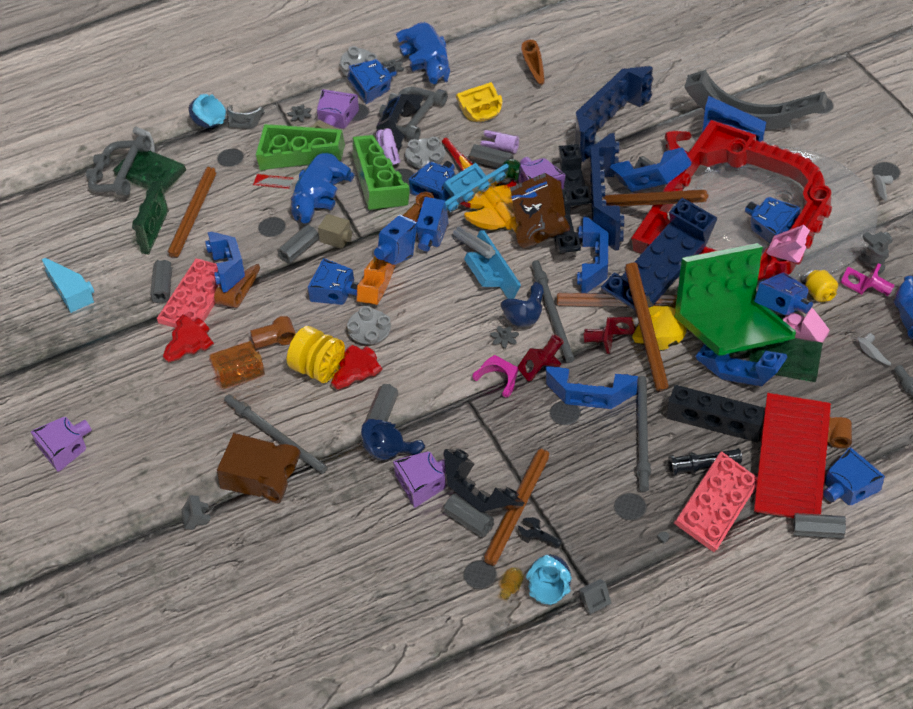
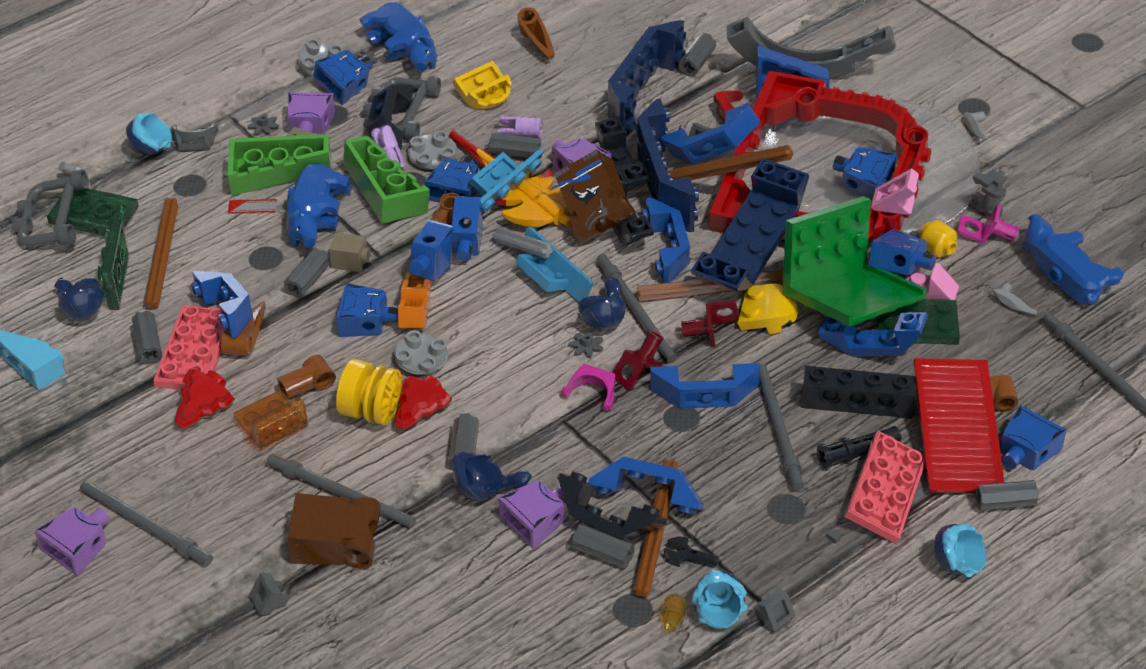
camera: 15 degrees left, 5 degrees down
(117, 243) = (79, 300): none -> dark blue piece
(142, 461) = (184, 545): none -> dark grey bar
(513, 170) = (548, 156): dark green plate -> none
(546, 479) = (683, 494): none -> blue slope
(646, 326) = (756, 307): dark orange axle -> none
(662, 95) = (697, 54): none -> dark grey axle
(764, 569) = (960, 549): none -> medium azure hair

